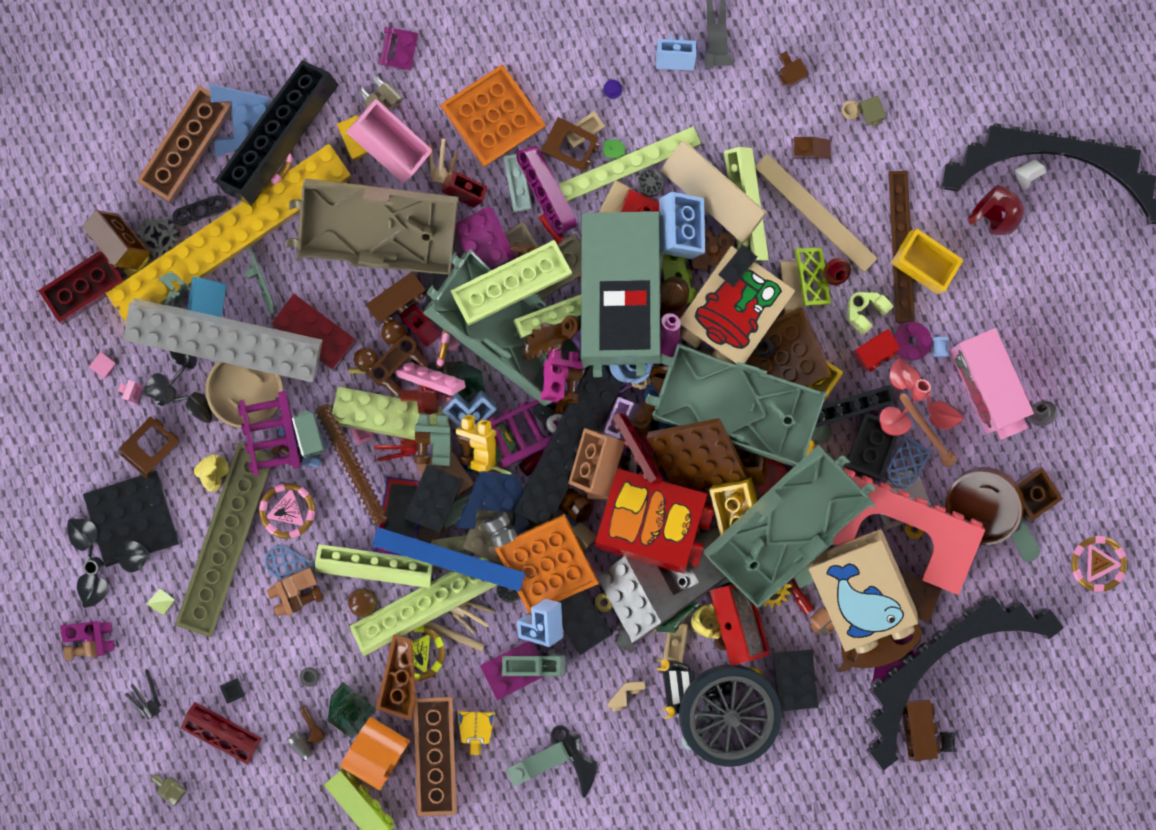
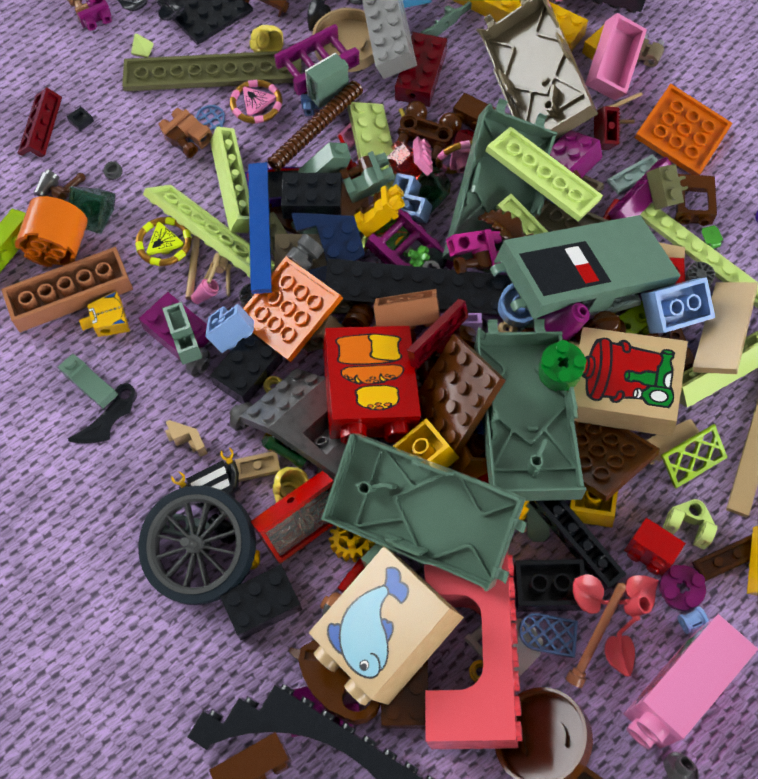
camera: 75 degrees right, 20 degrees down
(148, 708) = (45, 67): black plant -> none
(362, 602) = (196, 186): reddish brown hair -> none
(397, 689) = (126, 229): dark orange wedge -> none
(401, 474) = (328, 160): none -> sand green slope
(404, 49) = (696, 54): magenta plate -> none
(487, 633) = (205, 291): none -> bright pink cone
(539, 427) = (419, 256): none -> bright green plant
(556, 171) = (665, 186): none -> olive brick
(591, 124) = (724, 209): tan plate -> none
(721, 366) = (564, 355): none -> green brick
(737, 265) = (671, 353): black plate -> none
(759, 348) = (599, 430): black plate -> none
(837, 271) = (713, 478): dark red plate -> none

